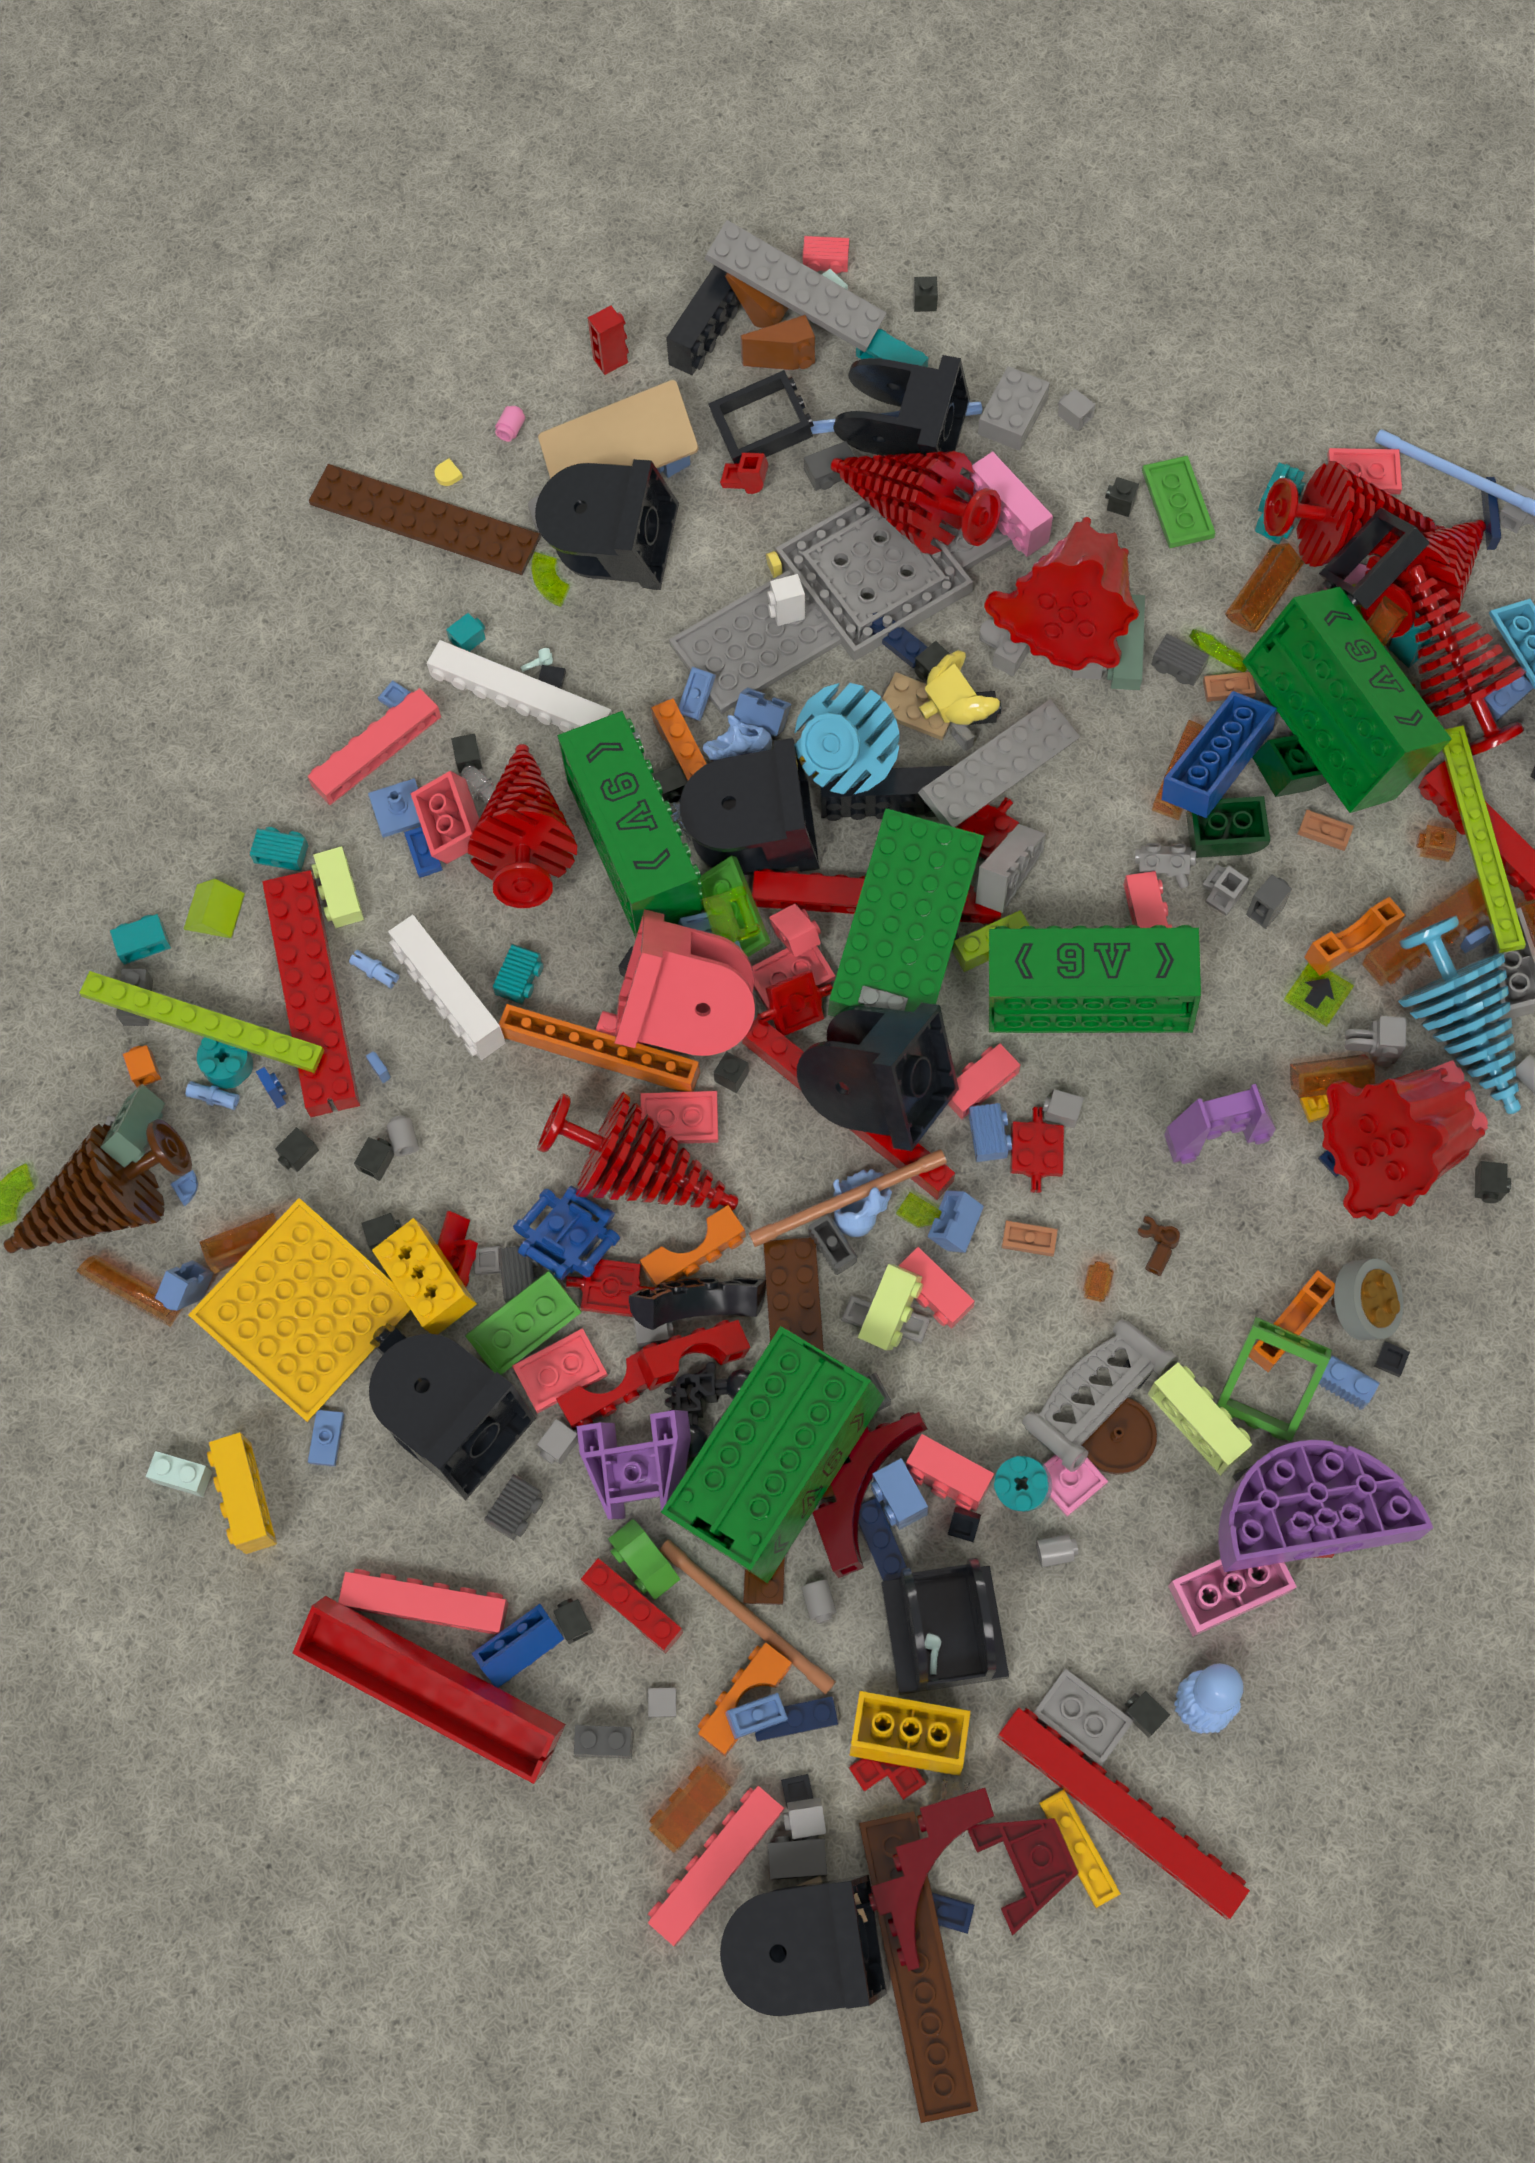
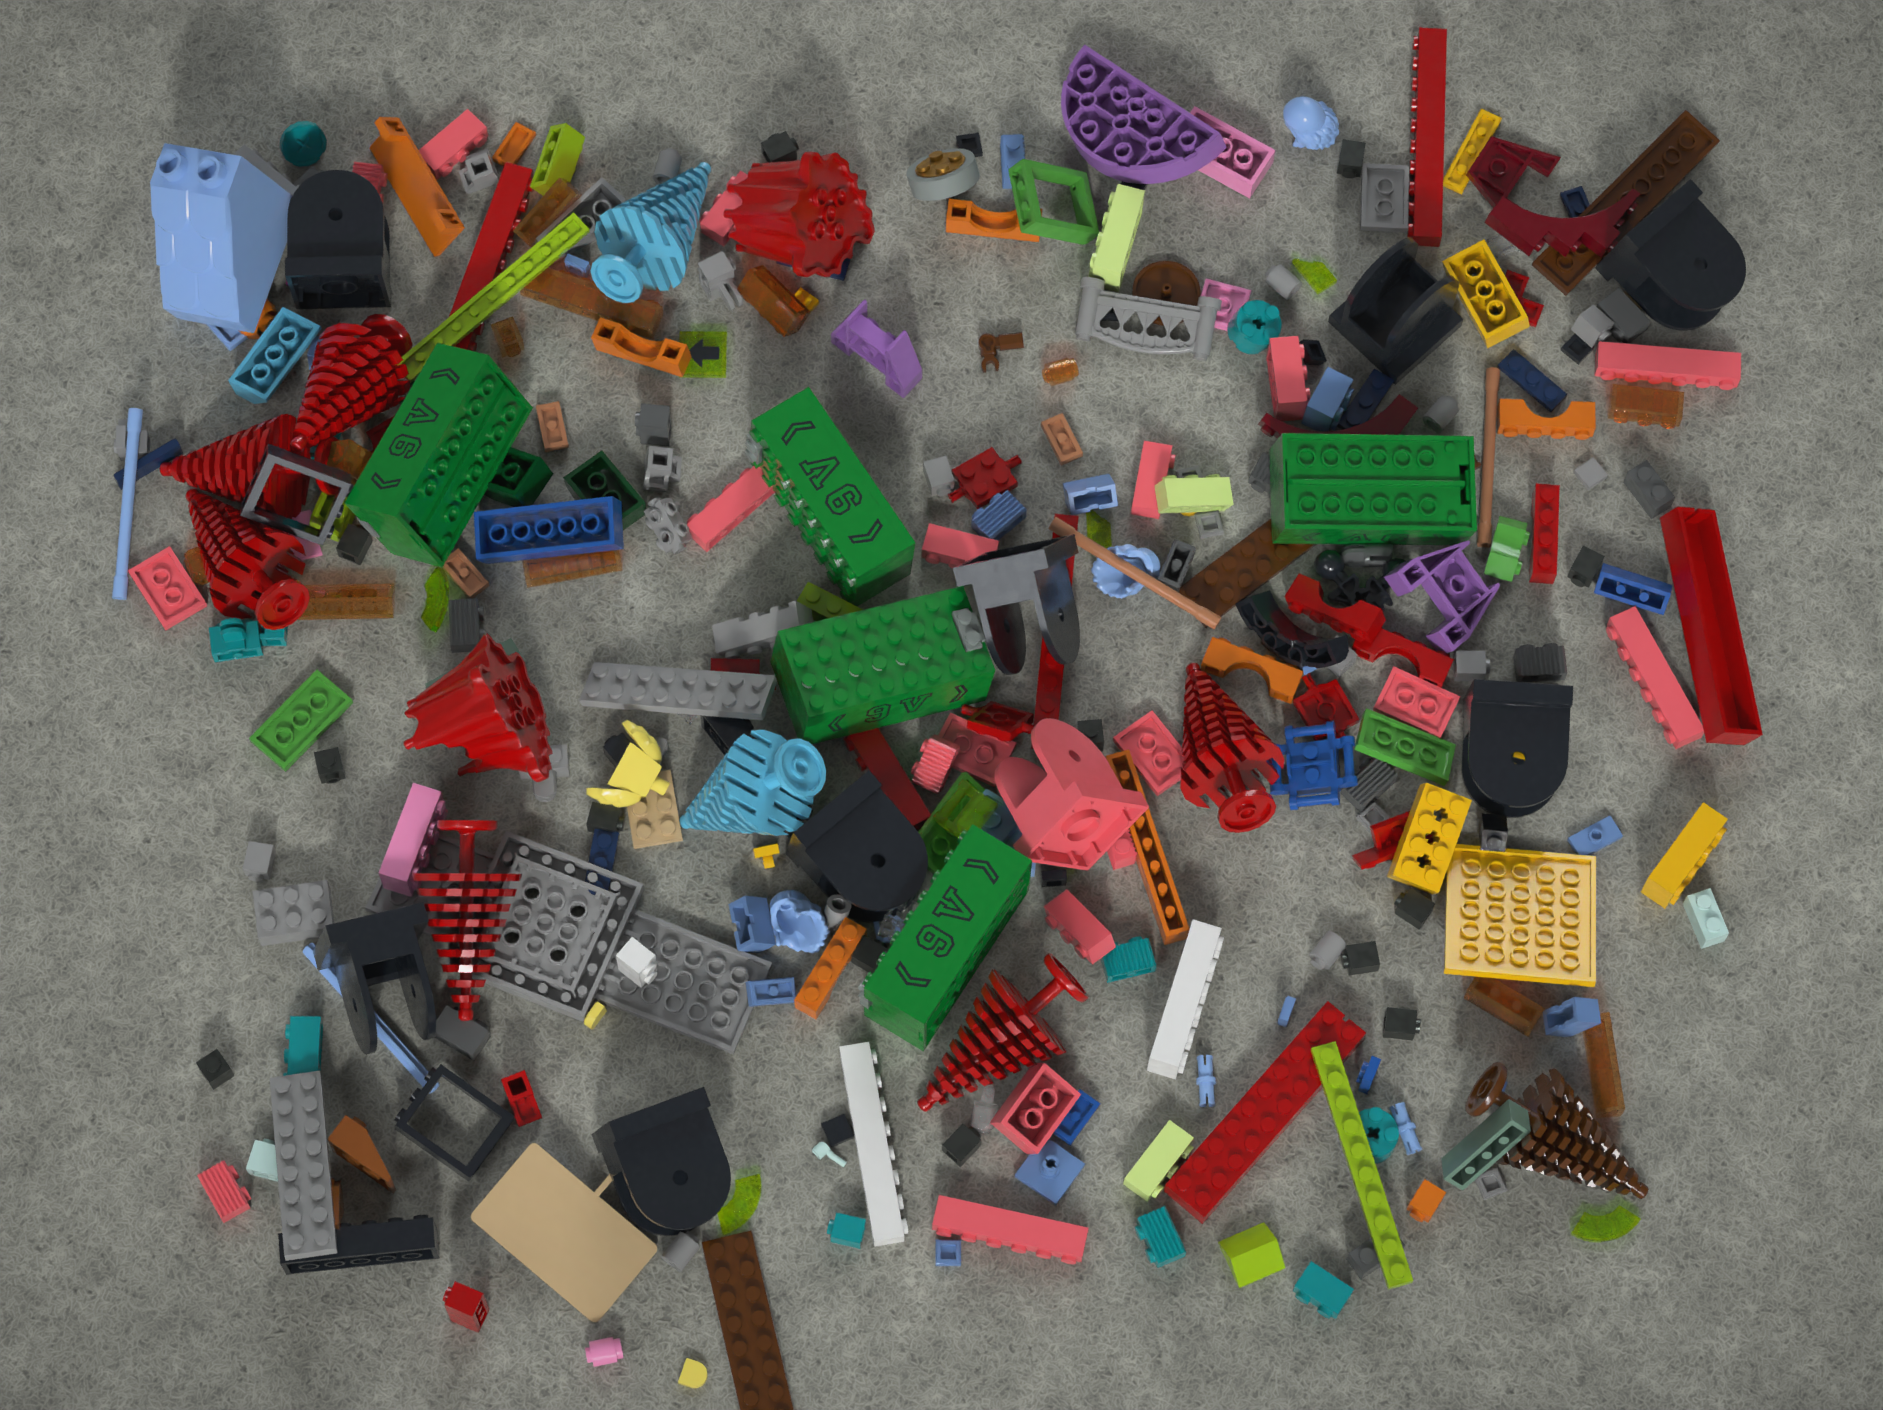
camera: 130 degrees left, 0 degrees up
(569, 947) = (1079, 927): none -> coral brick
(756, 1716) = (1553, 397): medium blue plate -> none
(1044, 1591) = (1315, 274): none -> clear neon green tile

